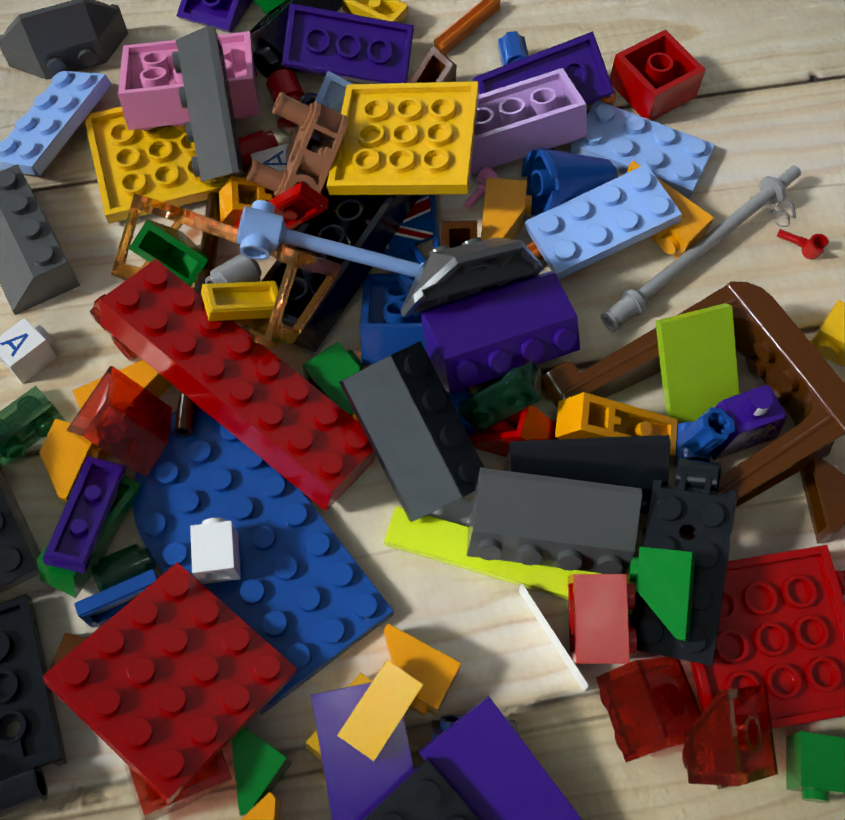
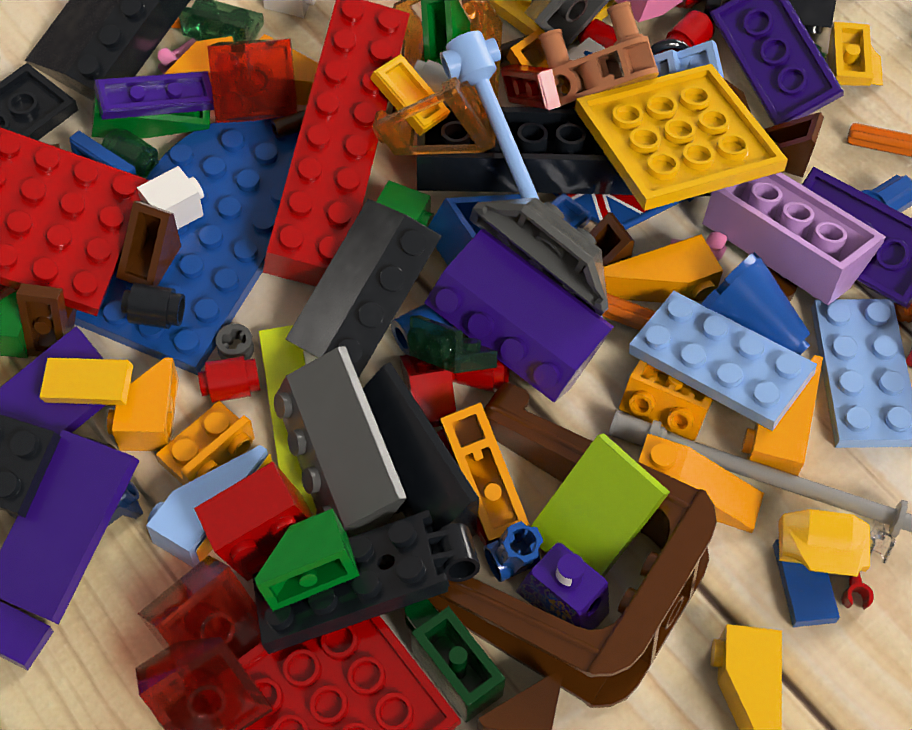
camera: 60 degrees right, 5 degrees down
(31, 490) = (169, 57): none -> bright pink hand
(257, 594) = (148, 245): none -> reddish brown slope
(281, 724) = (43, 316): none -> reddish brown slope
(323, 616) = (153, 306): none -> black brick
(396, 566) = (226, 337): none -> dark grey bush
(423, 586) = (229, 379): none -> red brick
(478, 635) = (207, 444): none -> light orange bracket
(546, 669) = (175, 524): none -> light blue slope
(607, 278) = (662, 398): none -> light orange bracket
(683, 292) = (734, 499): none -> light orange slope
(778, 242) = (825, 541): none -> yellow slope
(778, 526) = (453, 659): none -> dark green brick
(789, 270) = (807, 594): none -> blue tile

